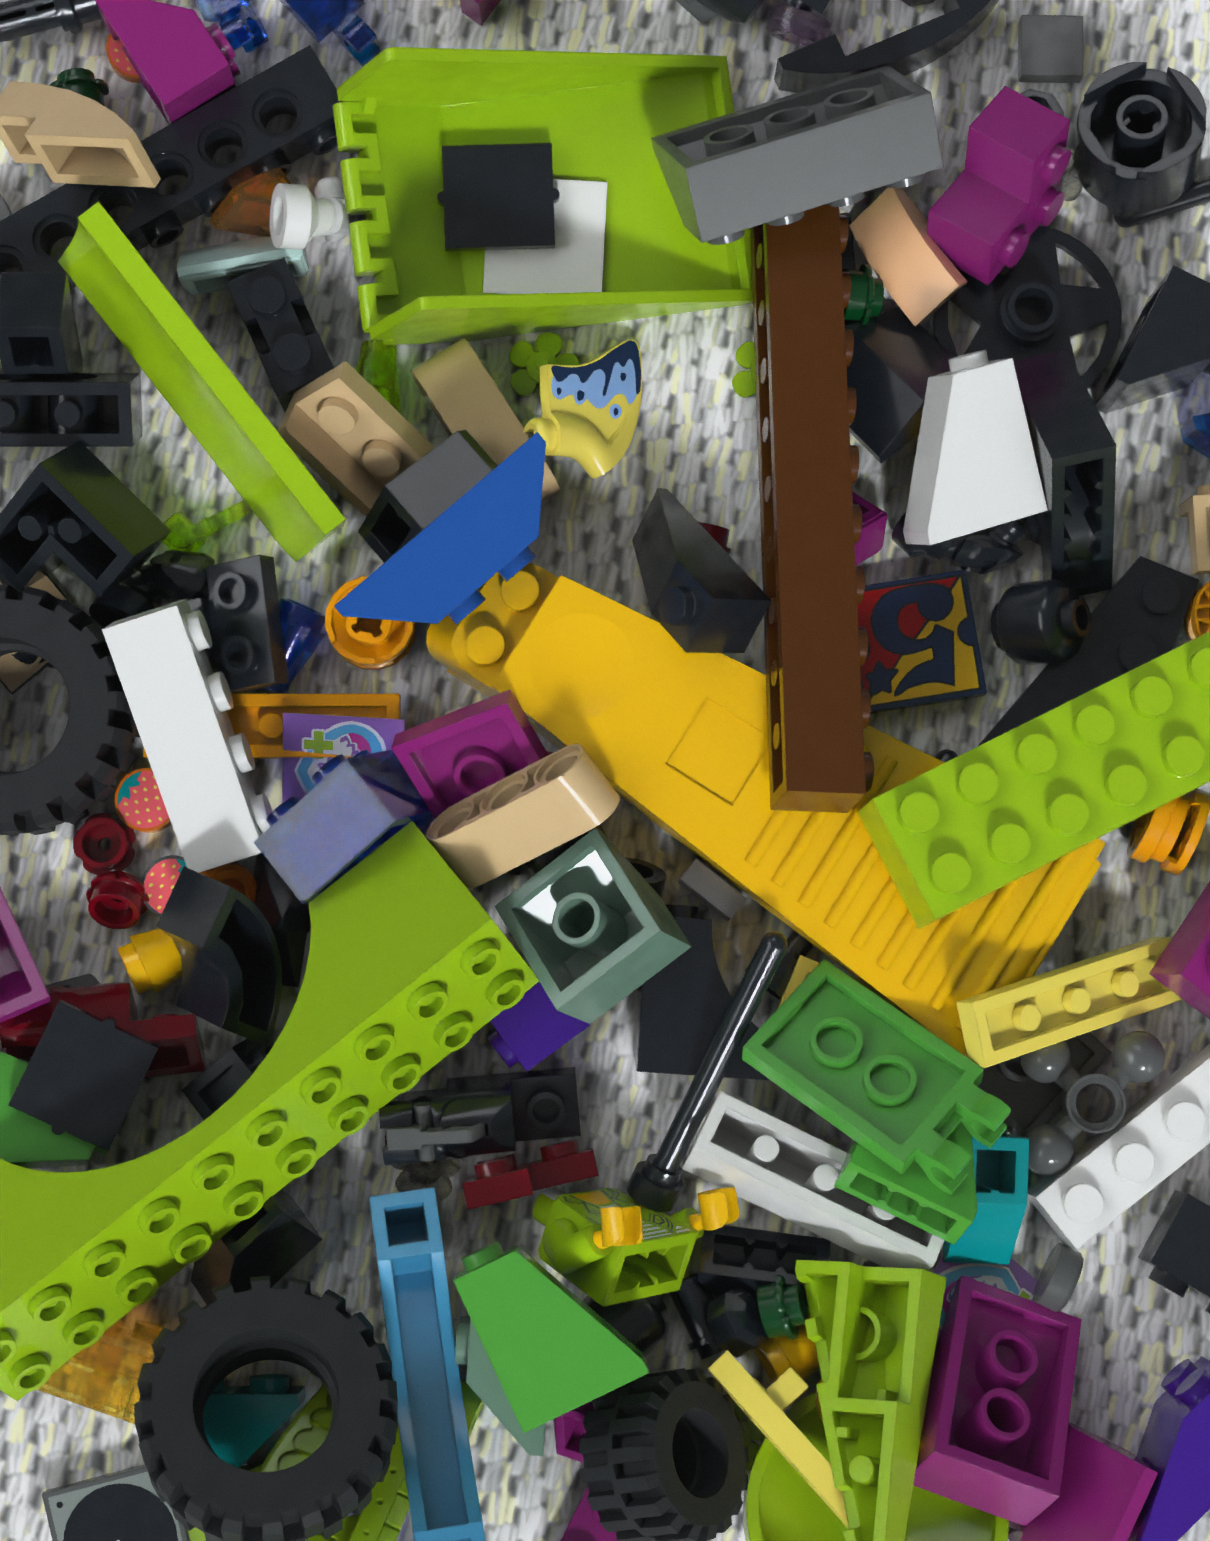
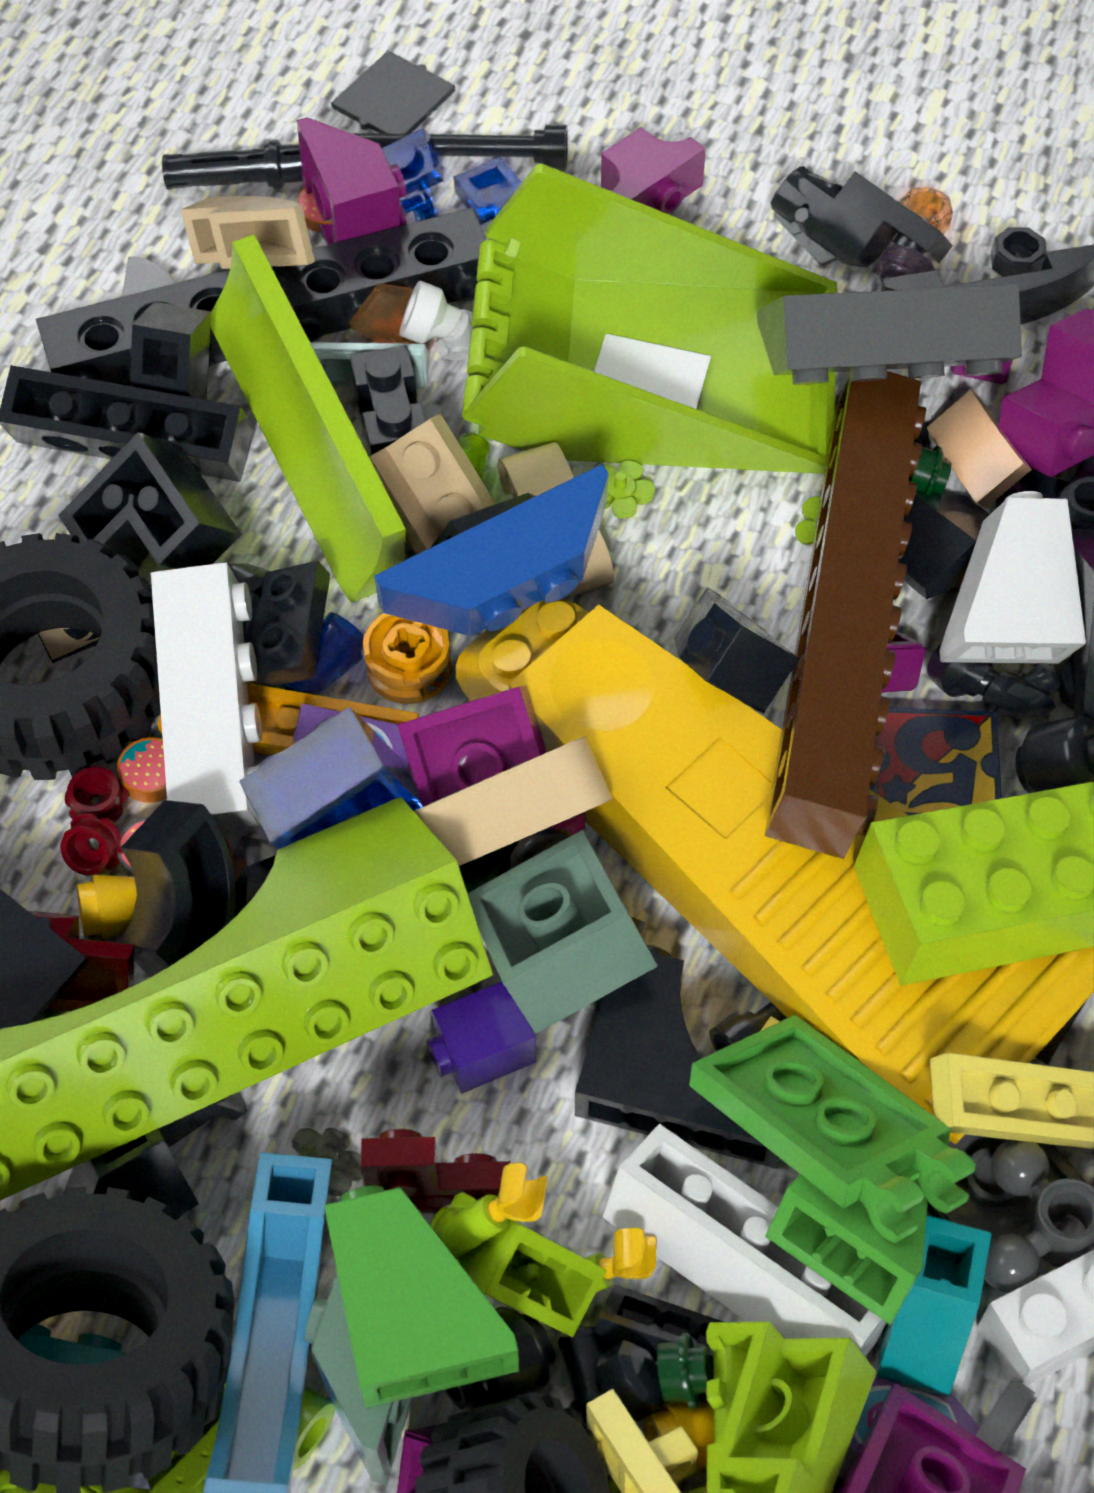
camera: 15 degrees right, 25 degrees down
(191, 537) = (253, 552): clear neon green hand -> none
(480, 1115) = (365, 1102): black plate -> none
(498, 197) = (614, 342): black piece -> none
(591, 408) = (657, 515): light yellow arm -> none
(658, 1179) = (576, 1216): black piece -> none
(712, 890) = (690, 941): flat silver tile -> none

